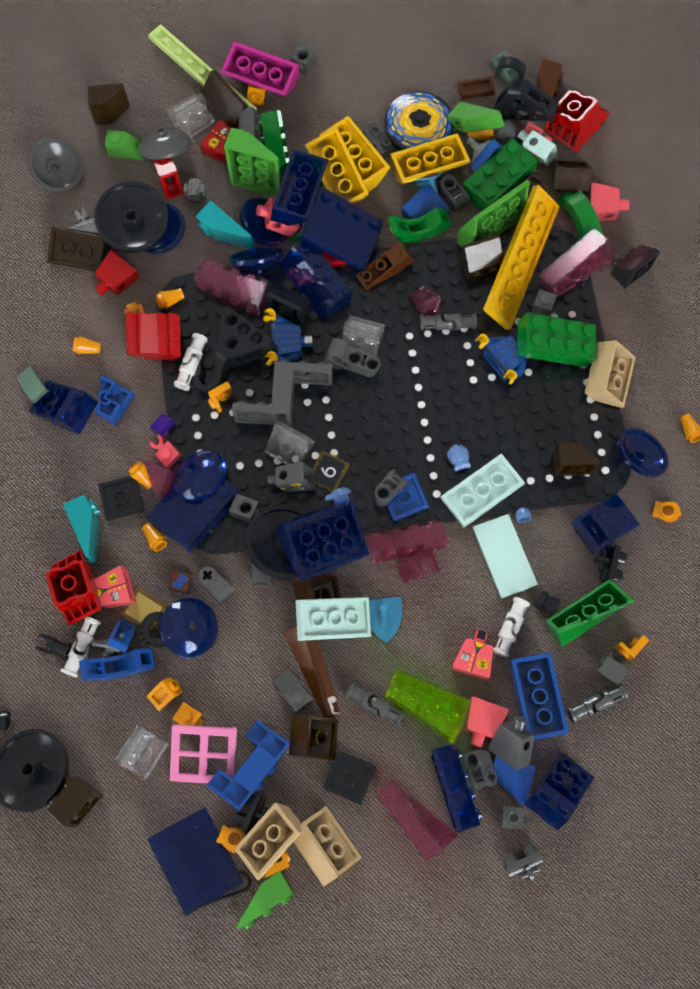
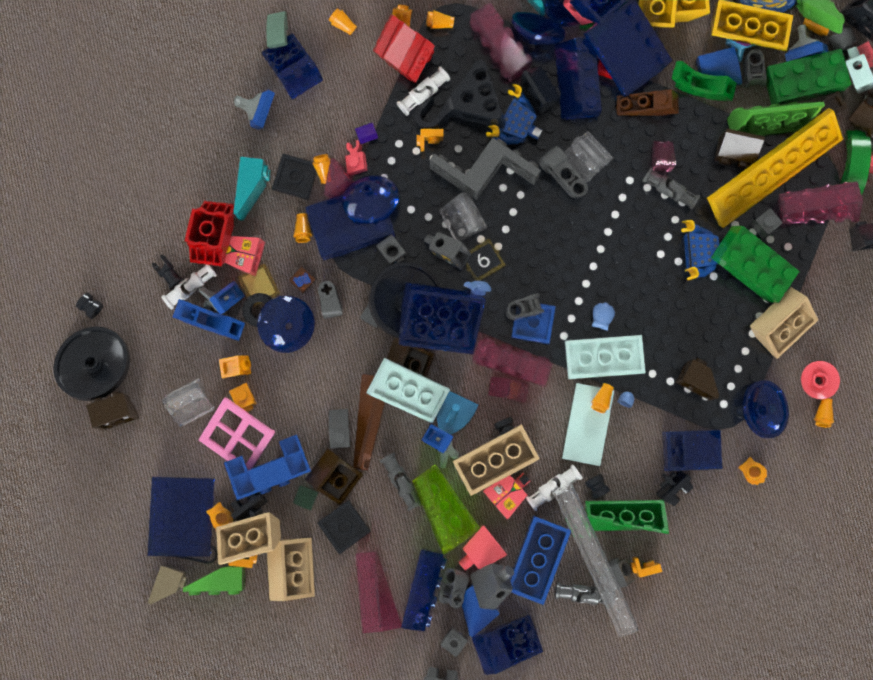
camera: 35 degrees right, 10 degrees up
(52, 458) = (256, 108): none -> piece
(112, 400) = (337, 85): blue slope -> none
(219, 932) = (167, 583): none -> dark tan slope
(299, 772) = (305, 497): none -> clear green tile
(388, 645) = (442, 442): none -> blue piece
(438, 602) = (504, 425): none -> black wheel
(446, 632) = (495, 460): none -> tan slope
(504, 527) = (602, 400): none -> light orange cone
(589, 665) = (596, 560): none -> clear plate
(675, 398) = (829, 380): none -> coral dish

